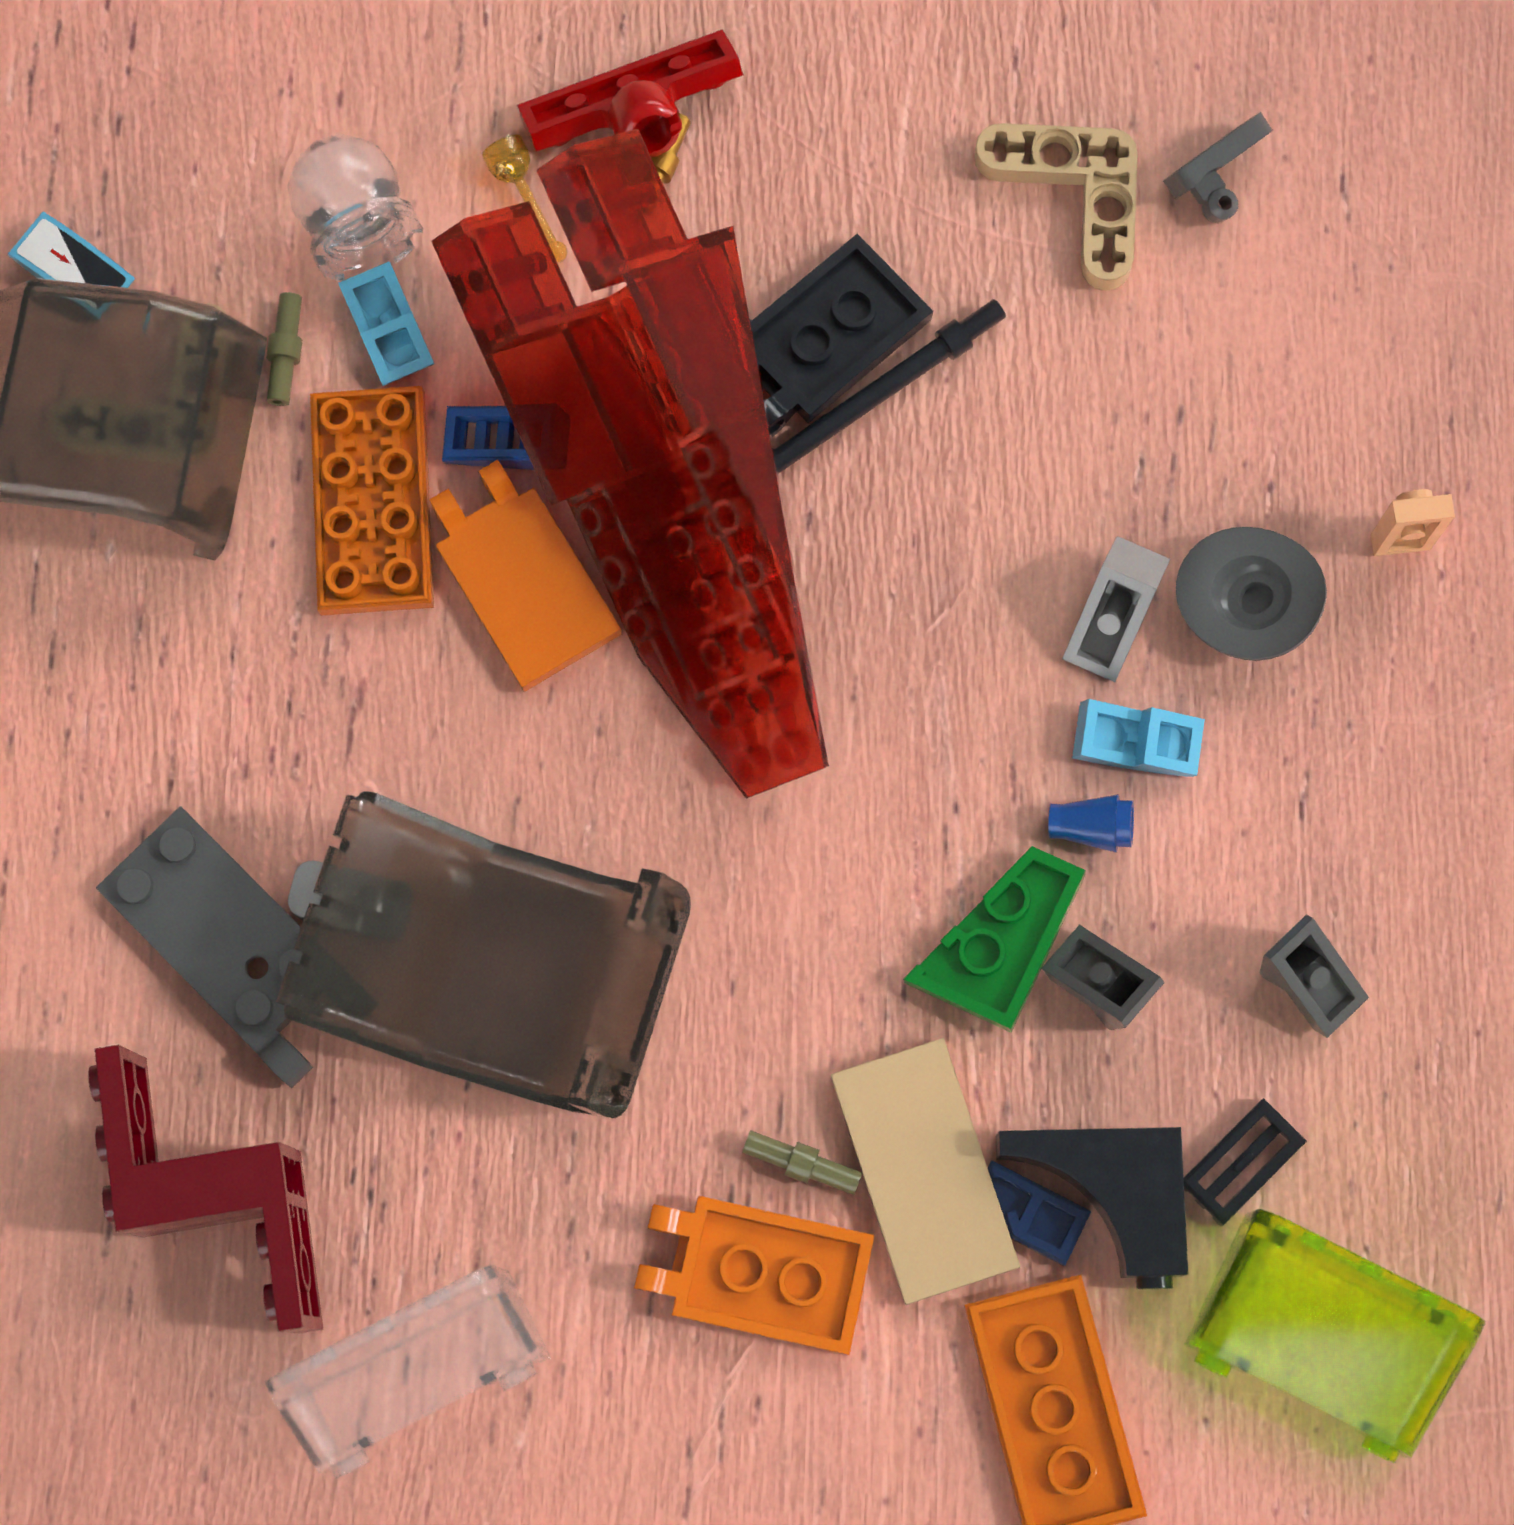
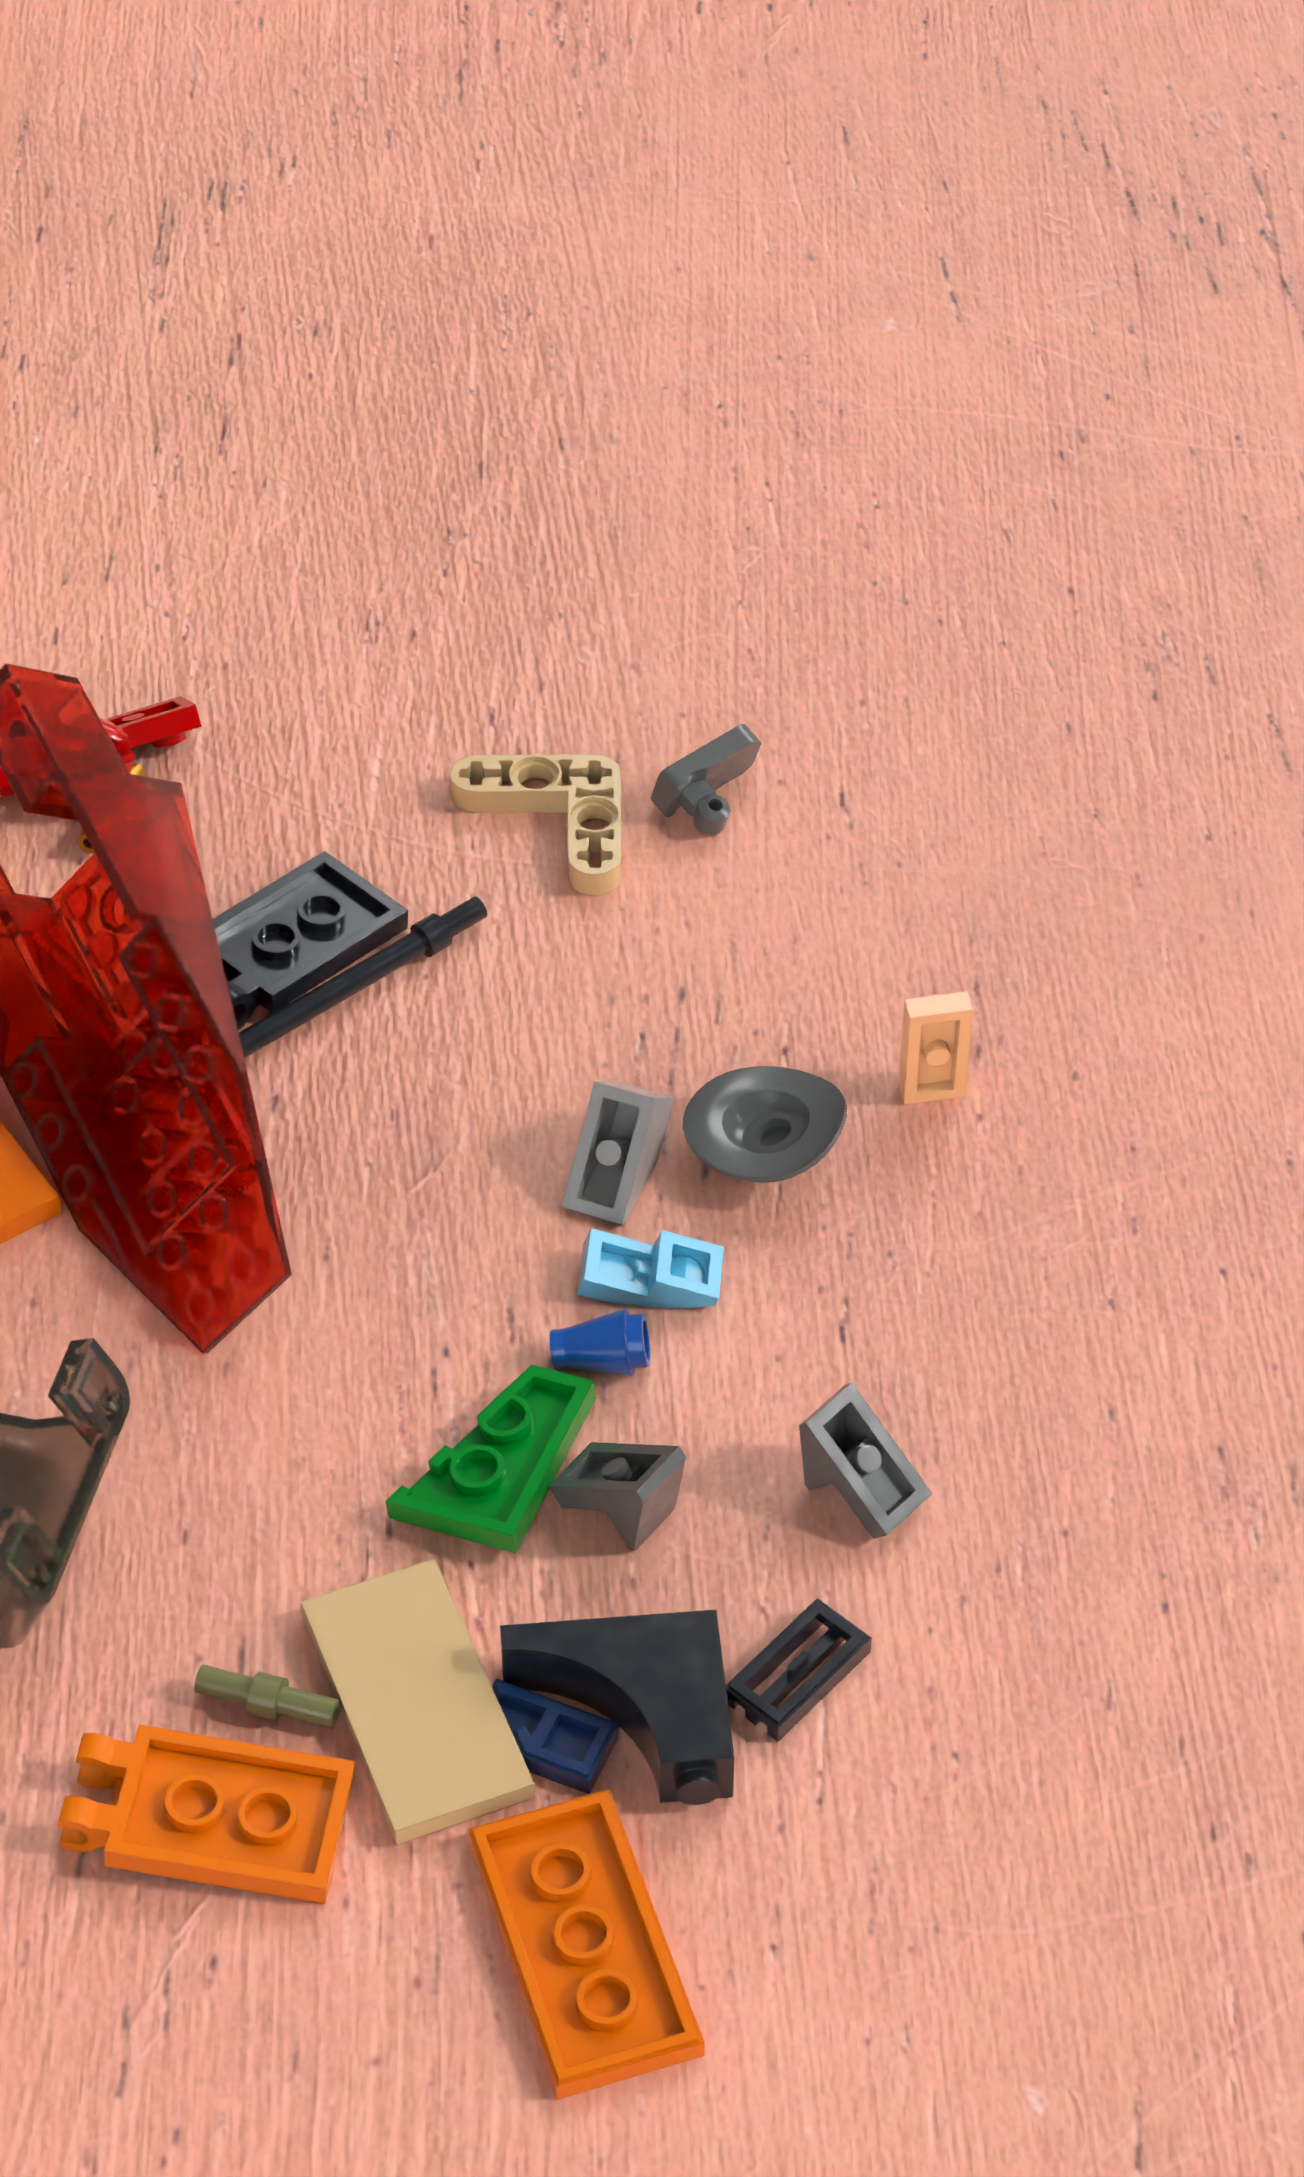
camera: 10 degrees left, 30 degrees down
(1333, 1332) = (922, 1803): clear neon green windscreen -> none

